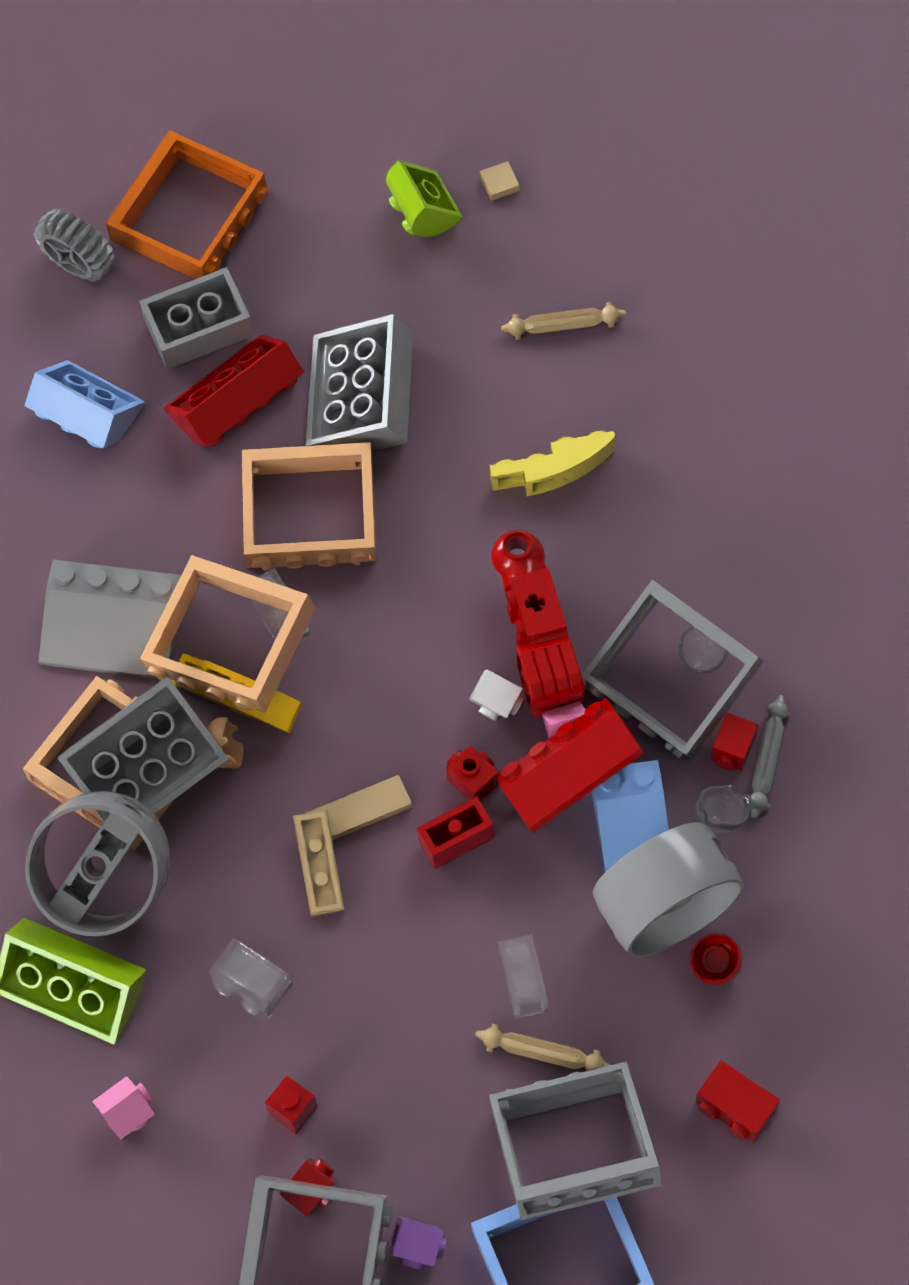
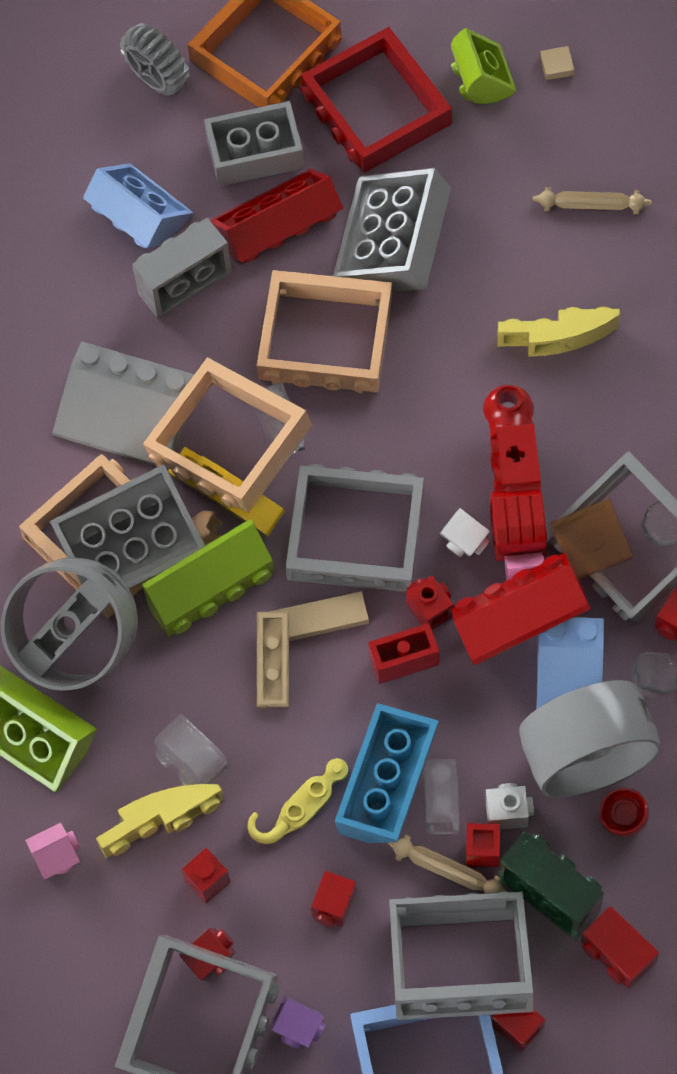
camera: 10 degrees right, 0 degrees up
(145, 462) = (182, 267): none -> light grey brick
(235, 790) = (208, 579): none -> lime slope
(239, 1039) = (169, 807): none -> light yellow slope
(320, 313) = (402, 139): none -> red window
(378, 1010) = (302, 804): none -> light yellow piece
(379, 758) = (352, 573): none -> light grey window
(429, 1105) = (333, 899): none -> red brick
(461, 965) = (385, 775): none -> dark azure slope
(576, 1020) = (482, 845): none -> red brick
(594, 975) = (508, 806): none -> white brick
(631, 678) = (592, 538): none -> clear orange tile
(648, 1204) = (519, 1027): none -> red brick
(655, 1048) = (551, 884): none -> clear green brick

